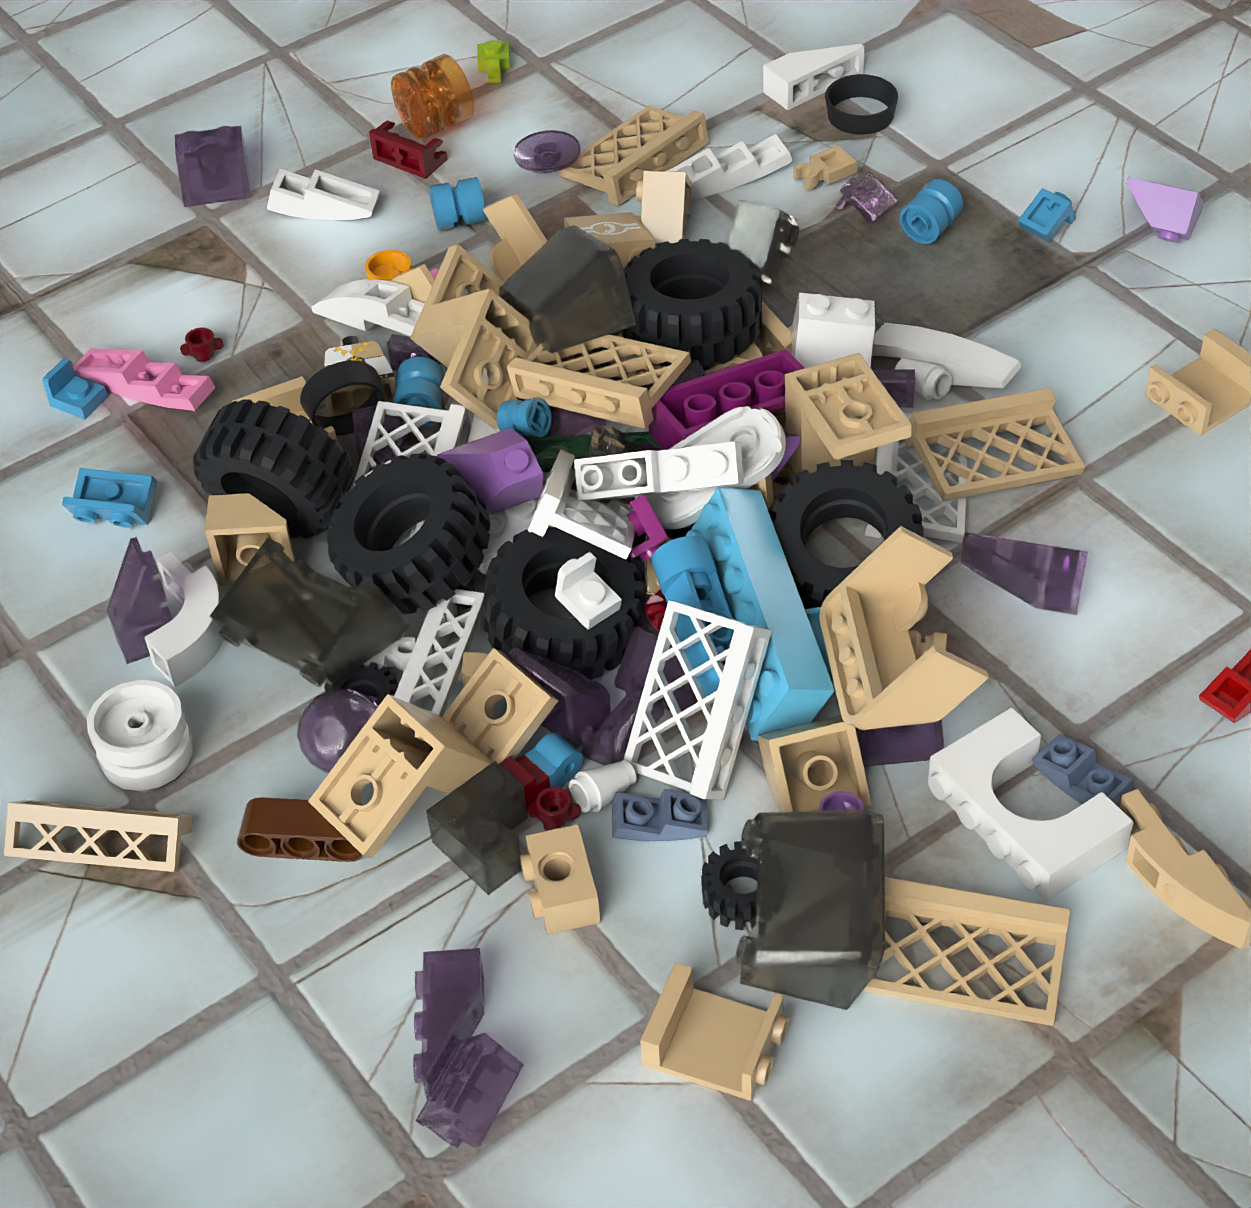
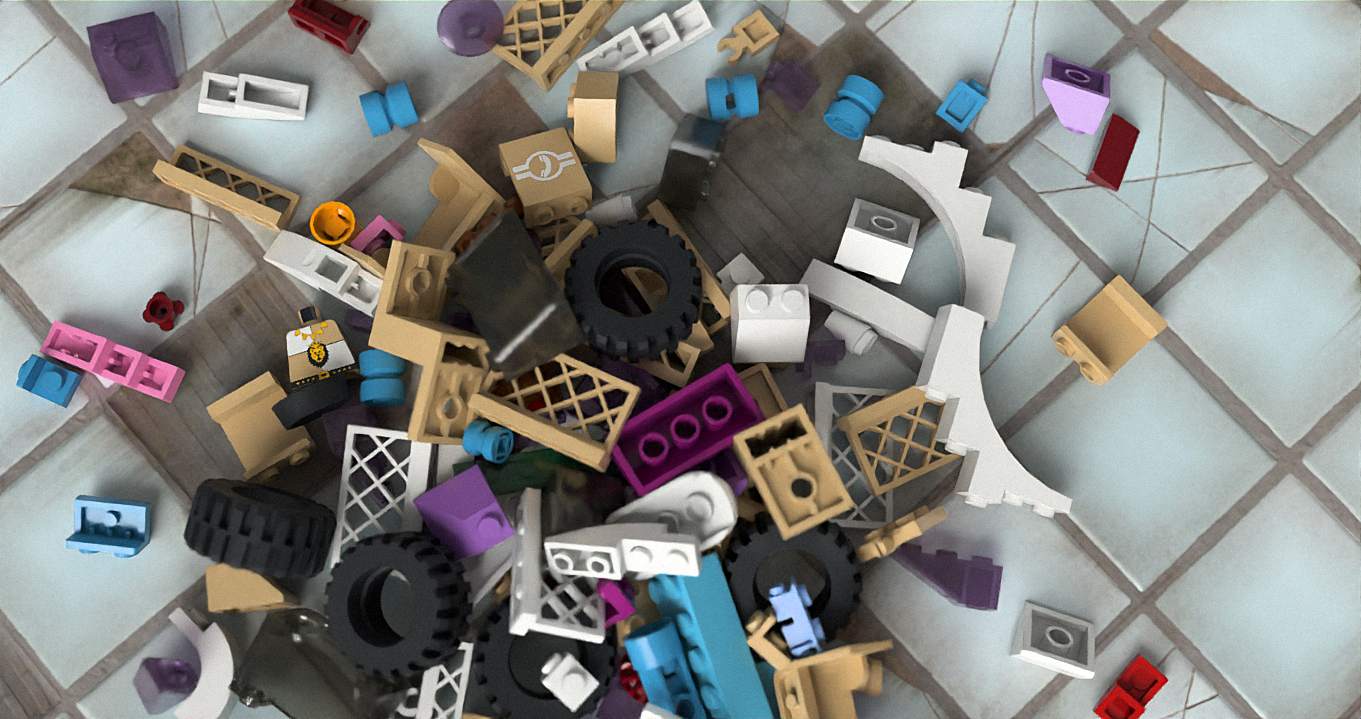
camera: 10 degrees left, 30 degrees up
(282, 261) = (227, 195): none -> tan fence
(813, 573) = (768, 645): none -> tan bracket
(817, 196) = (744, 97): none -> dark azure wheel
(843, 529) = (793, 603): none -> light blue hinge
(952, 308) = (877, 241): none -> white slope
(971, 504) = (899, 531): none -> tan plate
(1044, 290) = (936, 177): none -> white arch
(1050, 435) = (953, 378): none -> white arch
(1148, 639) = (1055, 642): none -> white slope
(1207, 255) = (1113, 153): none -> dark red slope

